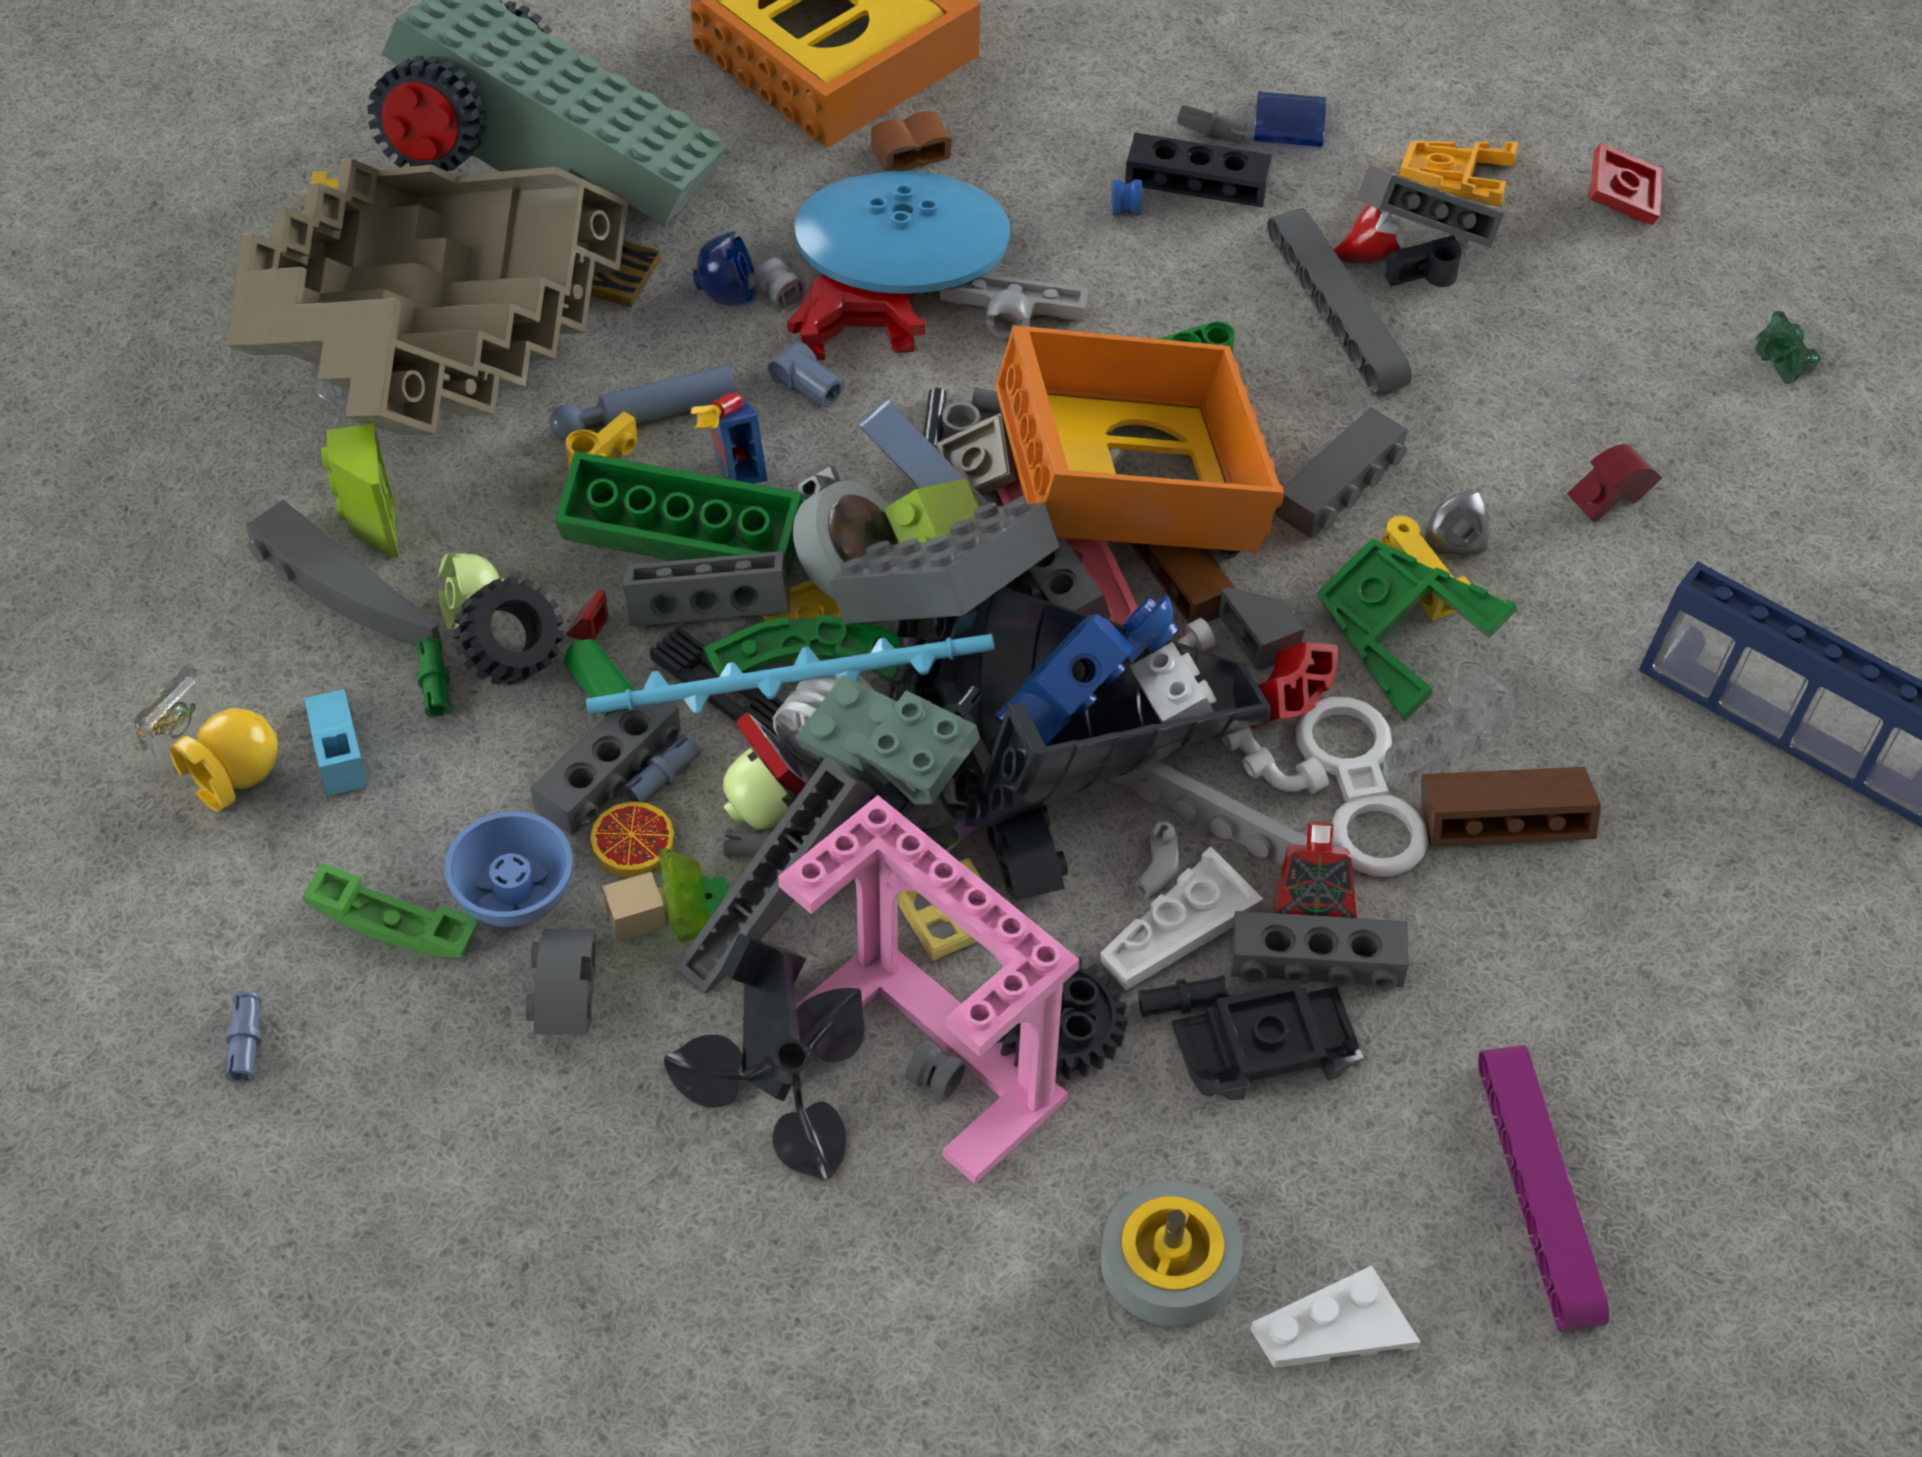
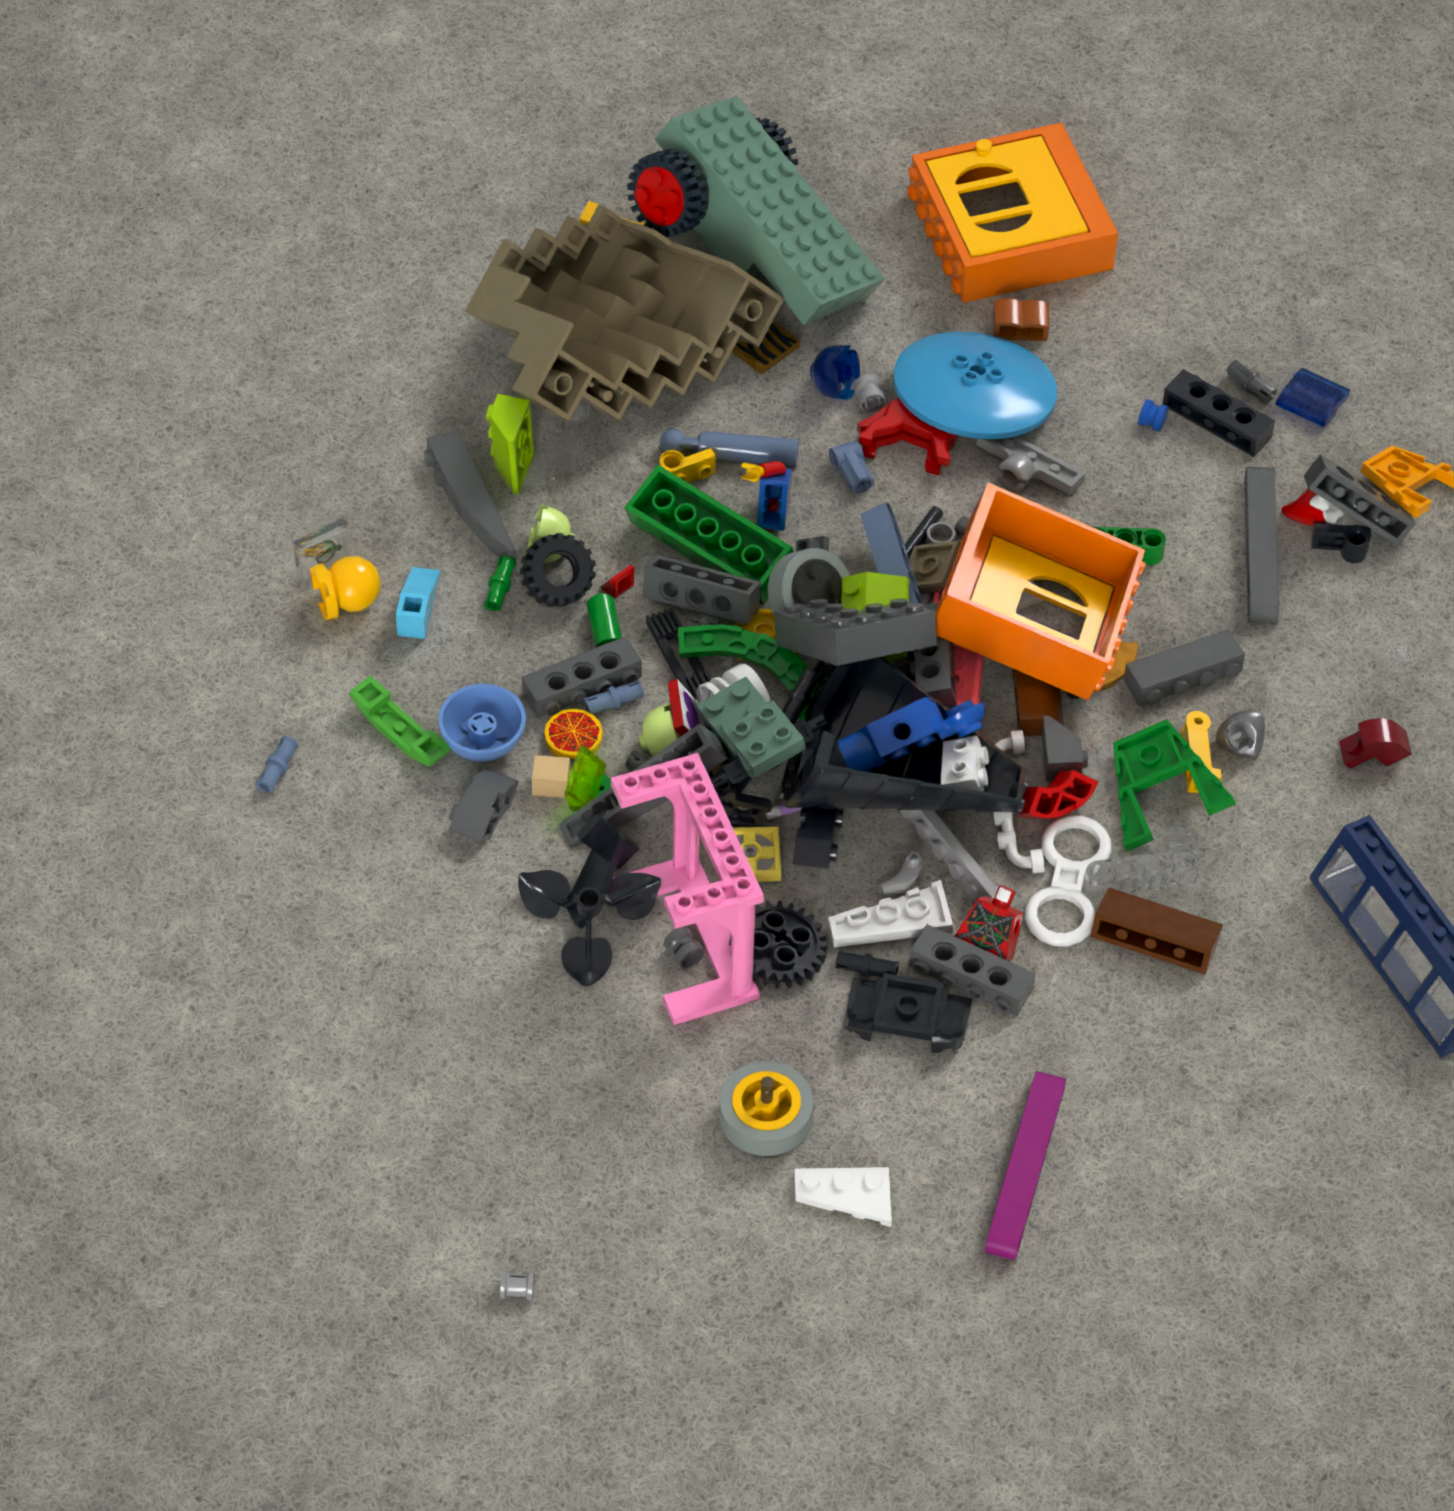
camera: 25 degrees right, 0 degrees up
(805, 668) = (728, 663): medium azure plant -> none

